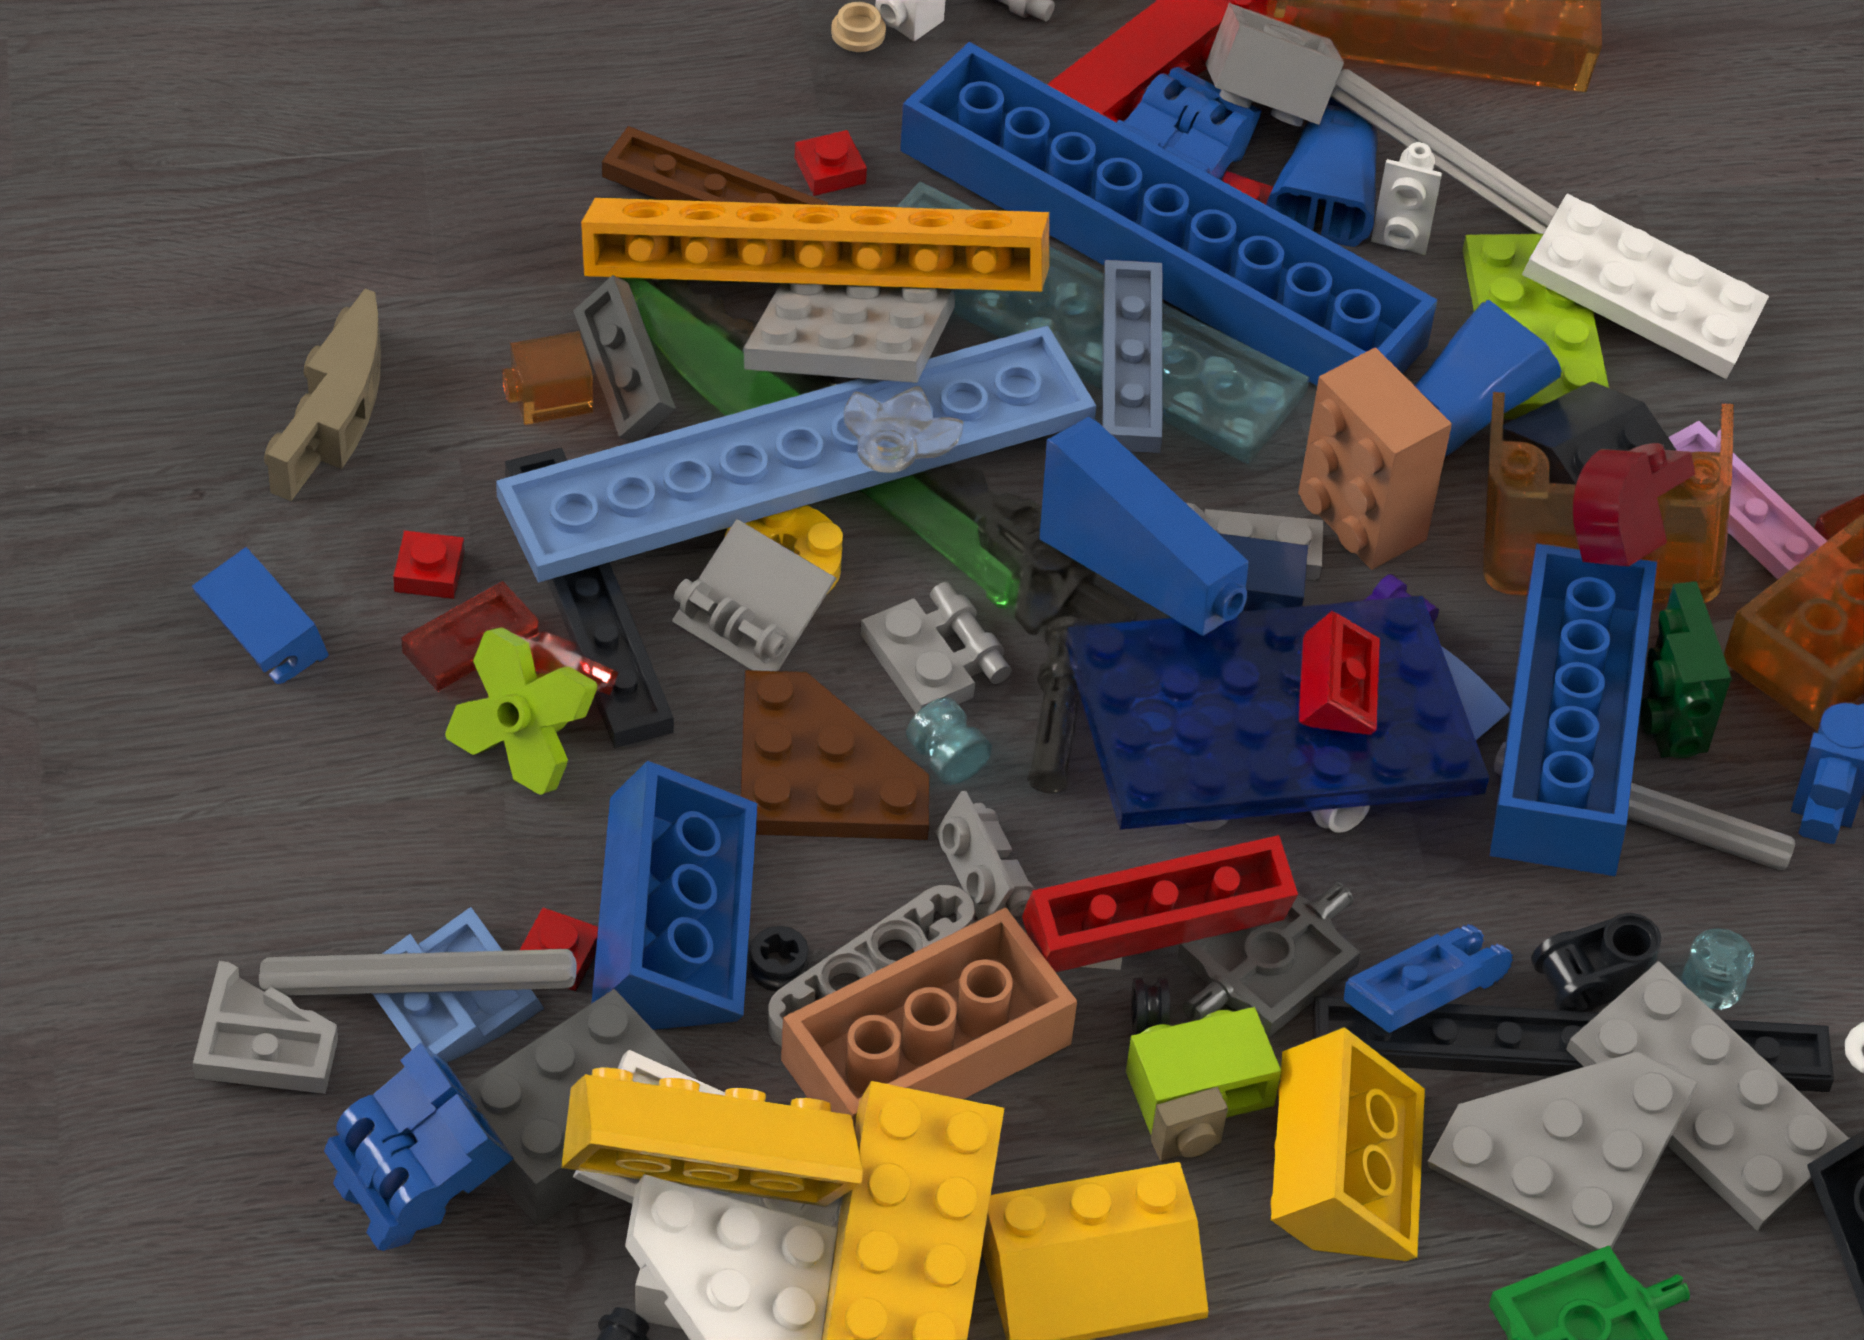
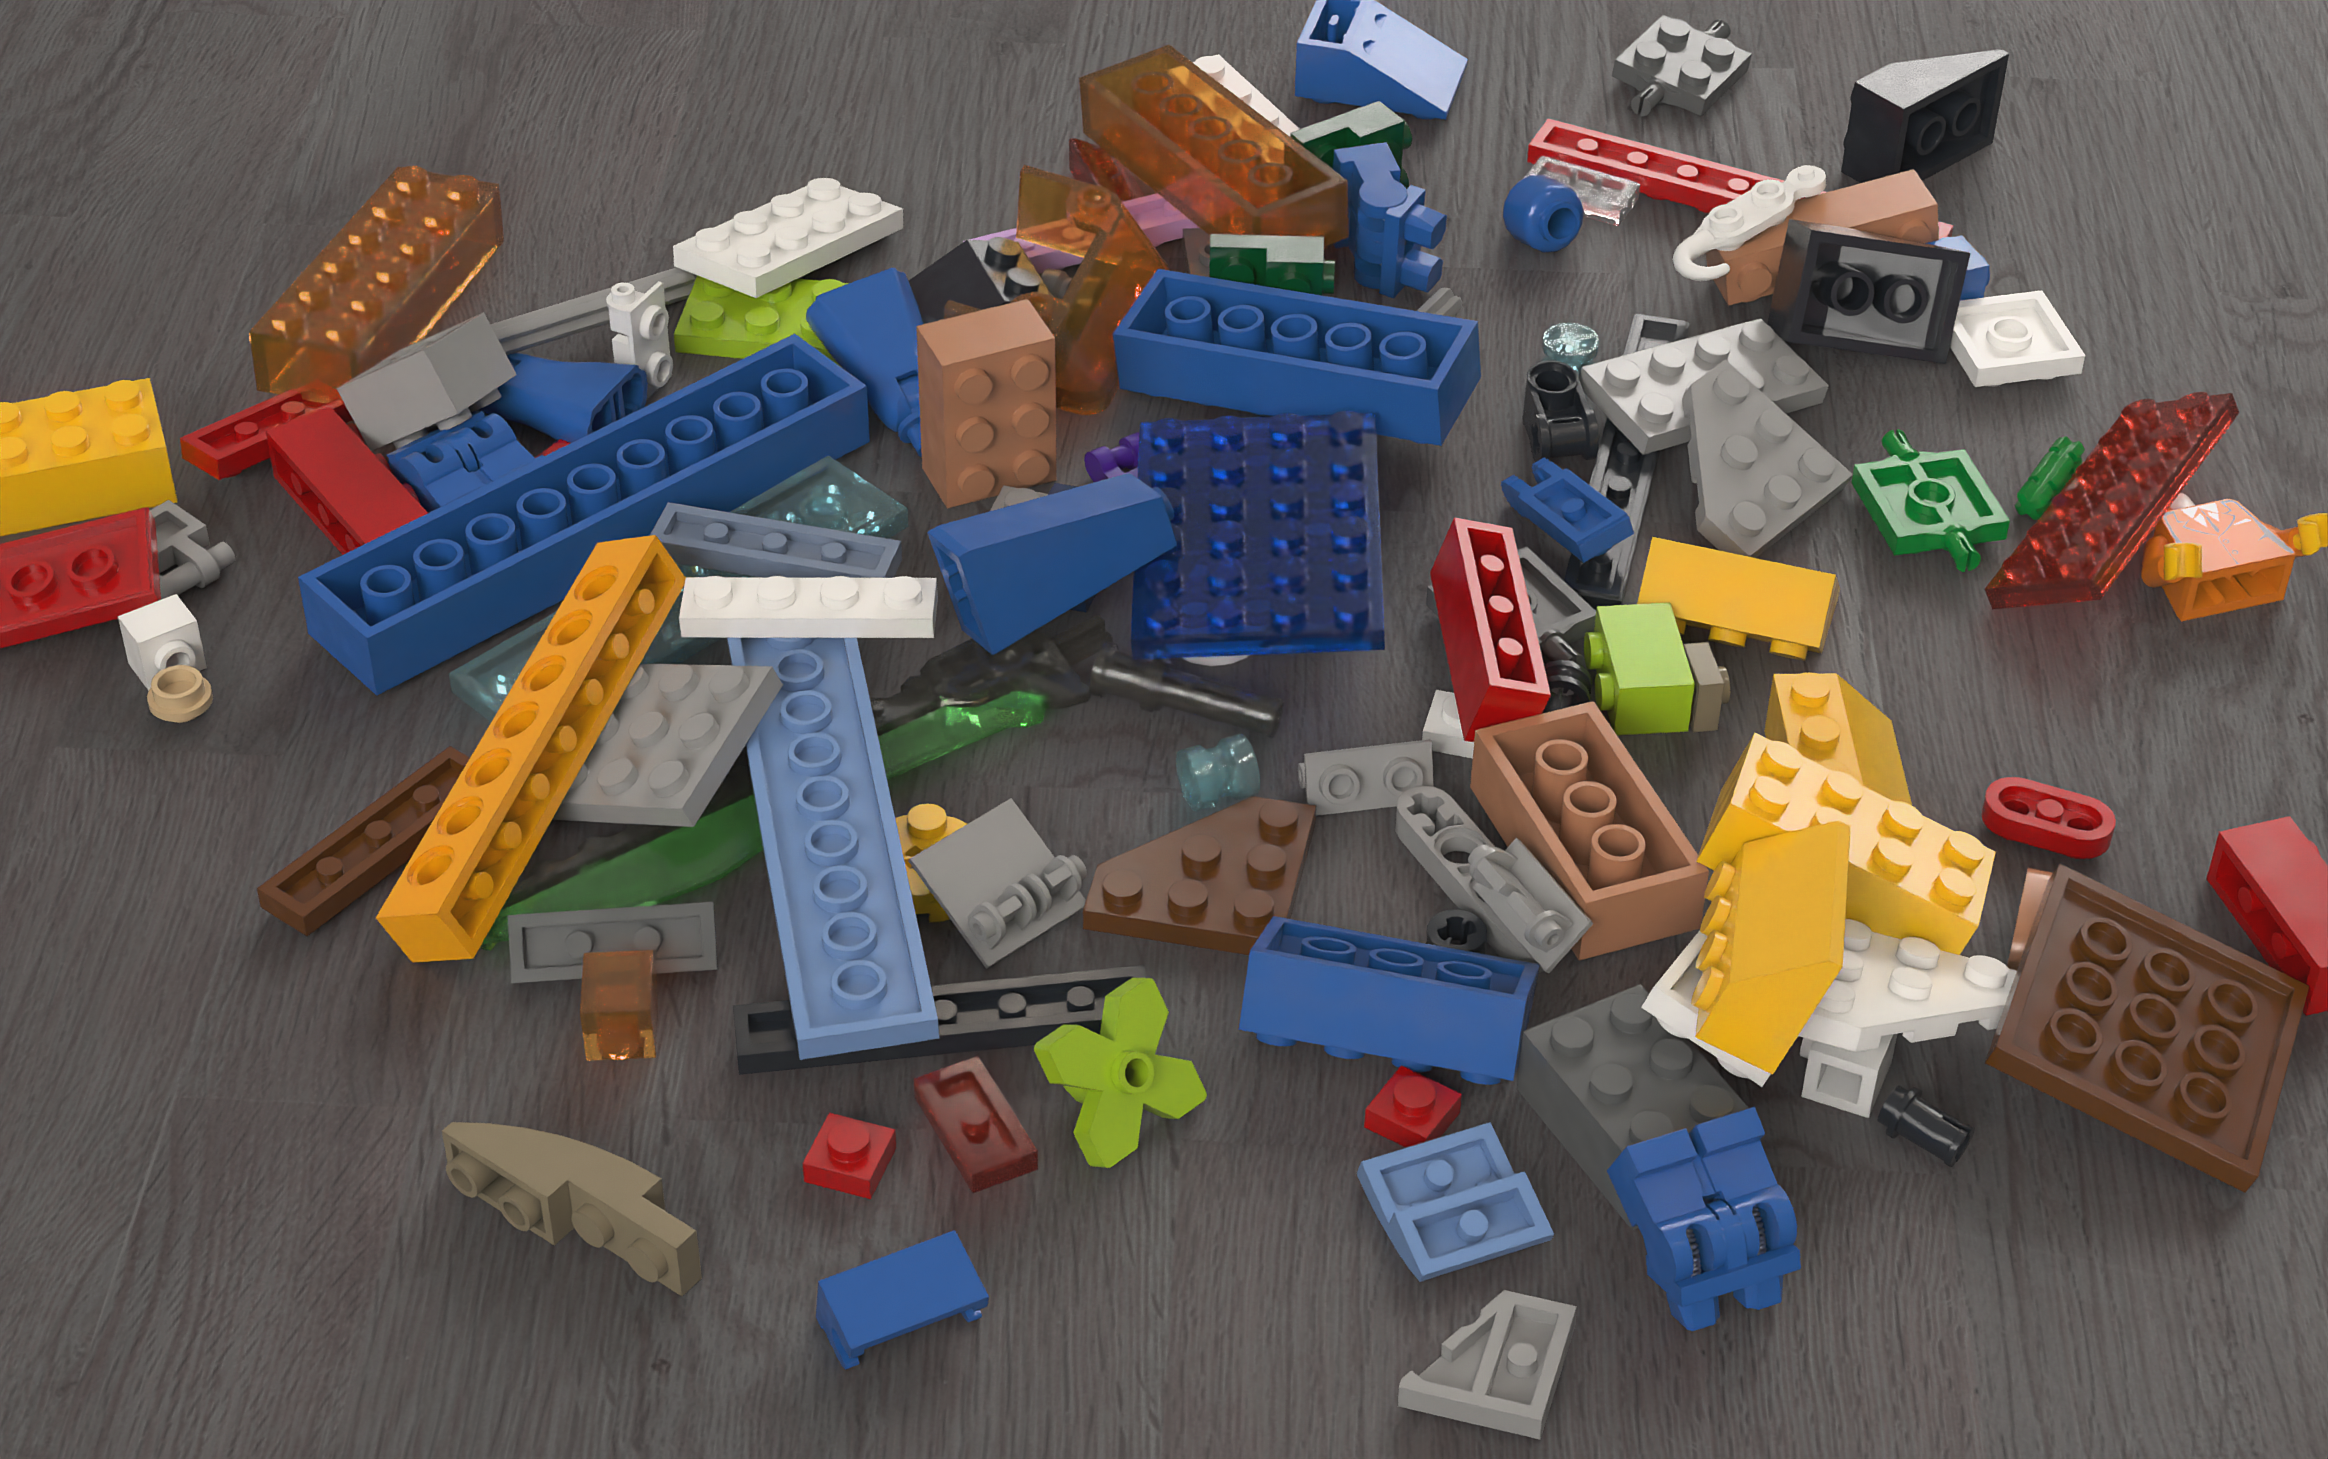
camera: 75 degrees left, 10 degrees down
(419, 972) = (1455, 1208): light grey axle -> none
(556, 652) = (1026, 1067): clear red plate -> none
(819, 971) = (1528, 901): none -> light grey hinge
(830, 162) = (370, 750): red plate -> none
(898, 430) = (850, 711): clear plate -> none
(919, 658) = (1088, 788): light grey plate -> none
(1028, 372) = (808, 607): none -> white plate
(1339, 676) = (1251, 469): red slope -> none
(1618, 503) = (1119, 245): dark red brick -> none

